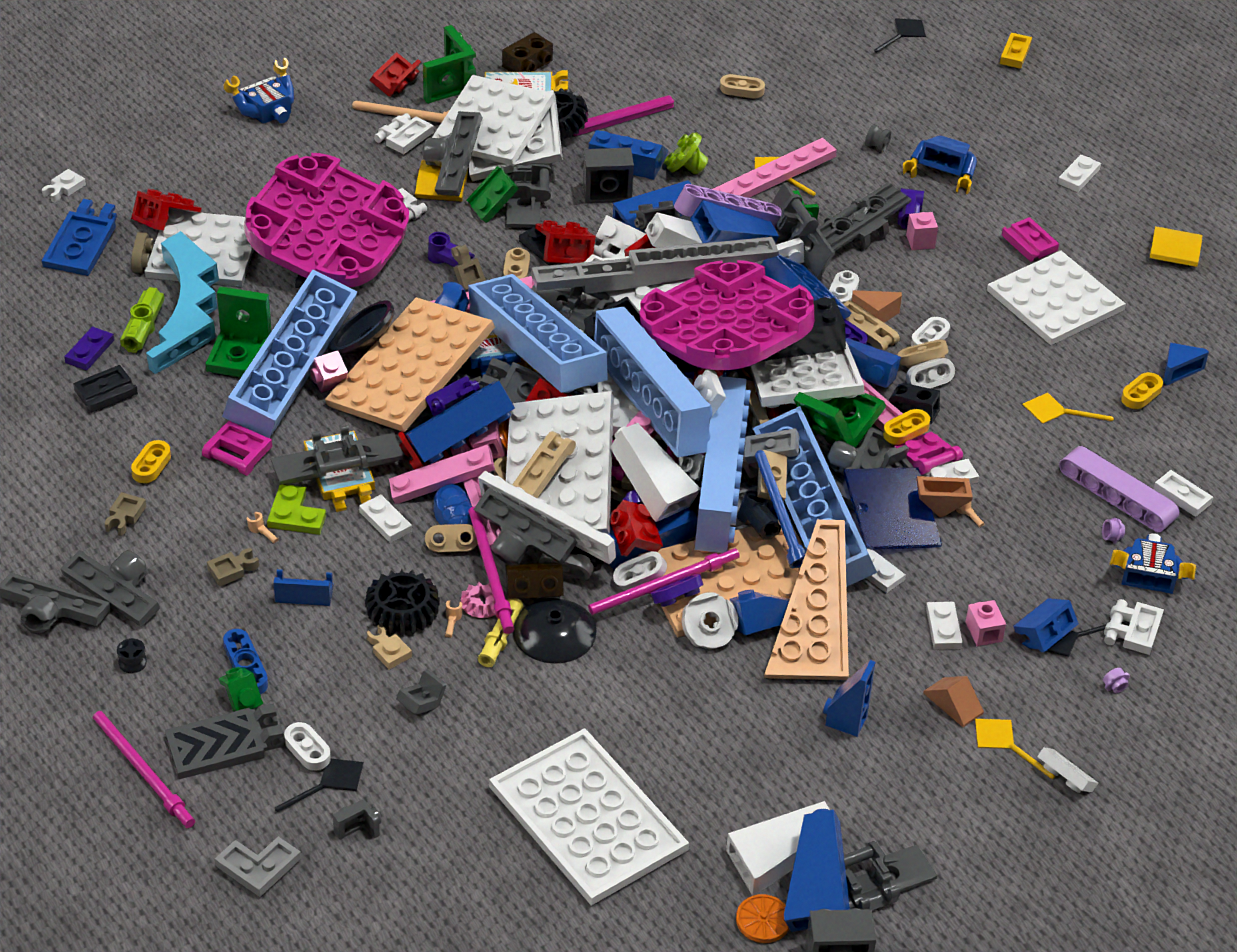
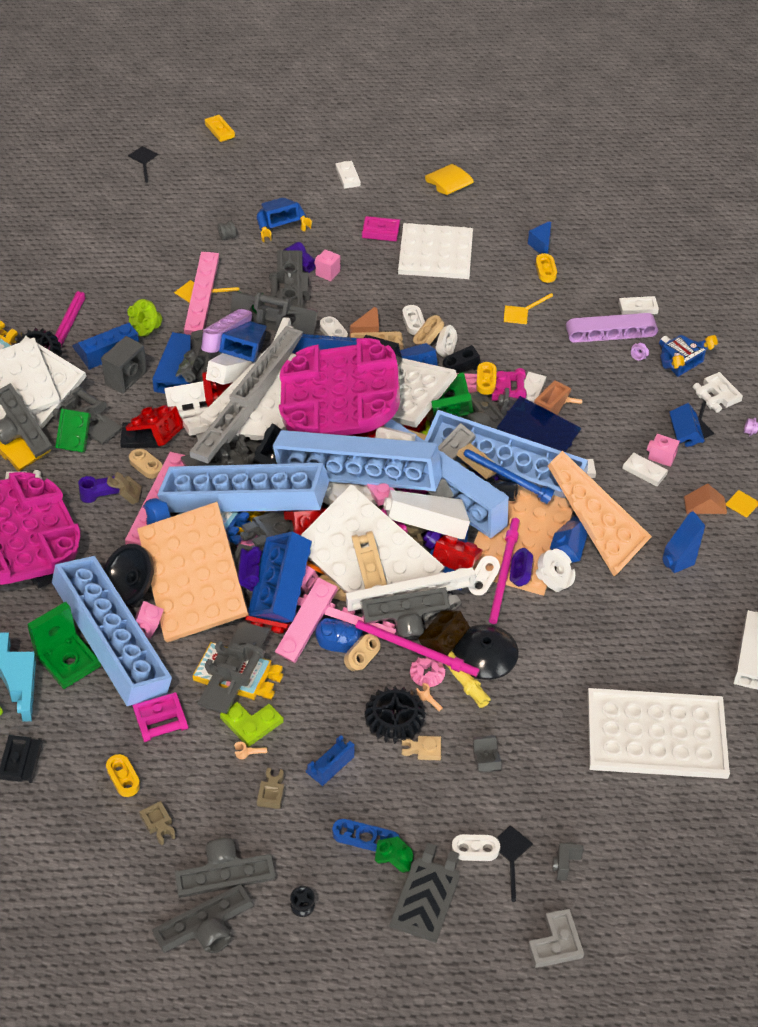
camera: 50 degrees left, 5 degrees up
(172, 802) = (460, 959): dark pink bar -> none
(385, 518) = (306, 676): white plate -> none
(742, 86) = (108, 255): tan plate -> none

